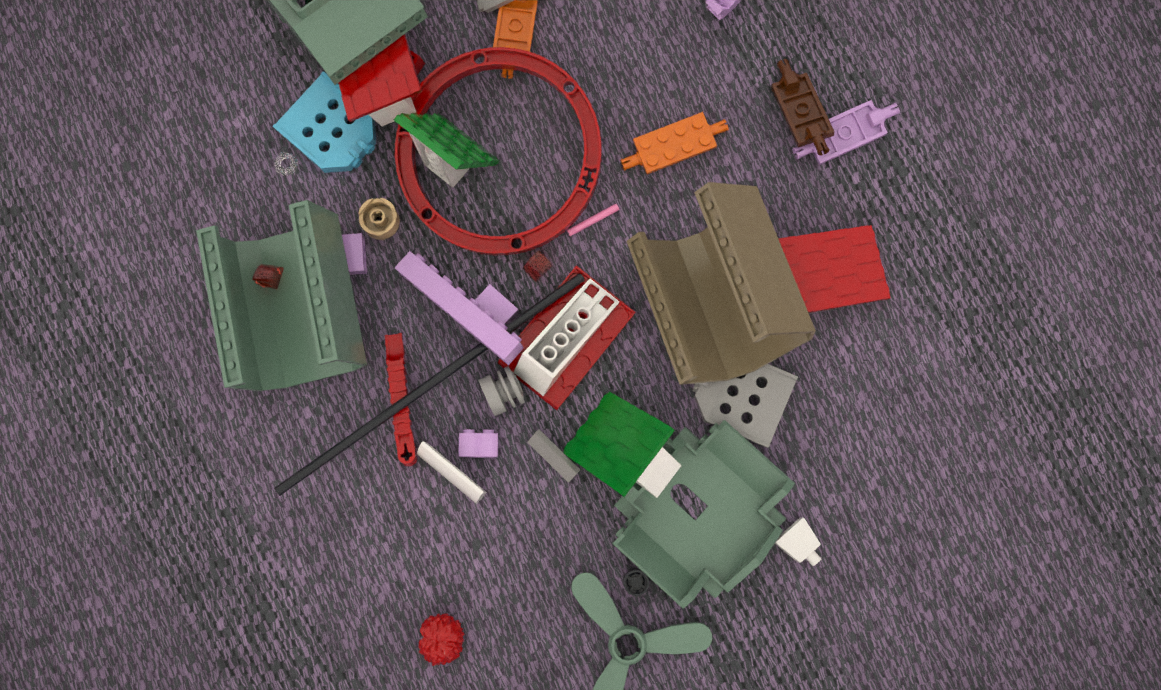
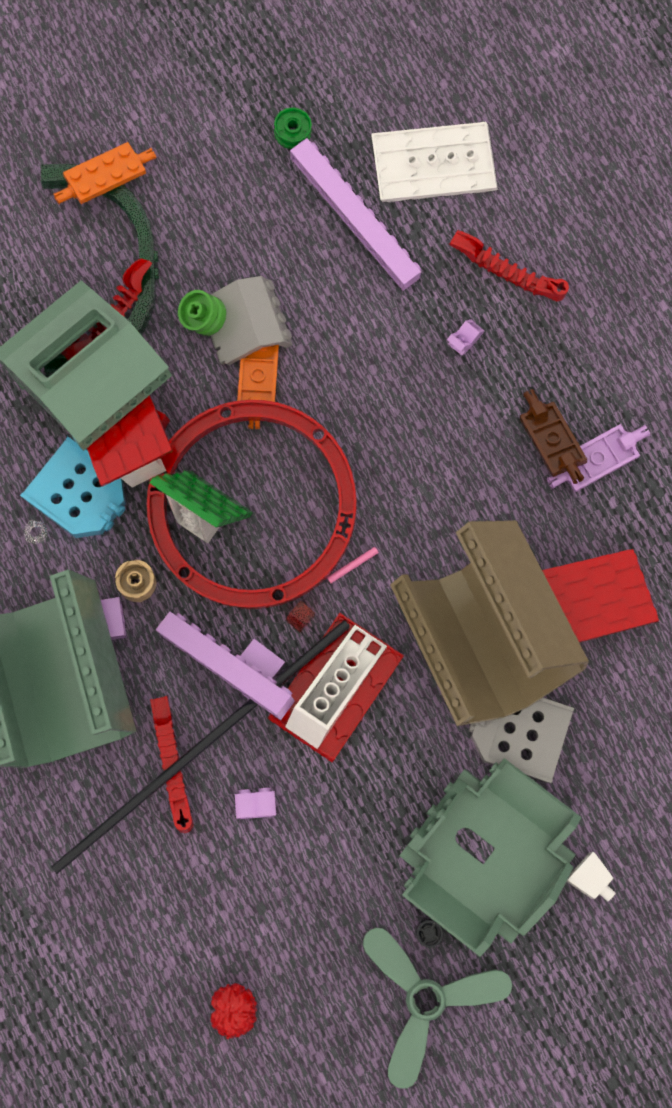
camera: 10 degrees left, 5 degrees down
(268, 276) = (26, 648): clear red brick -> none
(450, 472) = (229, 836): white slope -> none
(501, 391) = (275, 747): light grey wheel -> none
(553, 455) = (333, 809): light grey tile -> none
(624, 447) = (405, 794): green piece -> none
(674, 143) = (428, 482): orange plate -> none

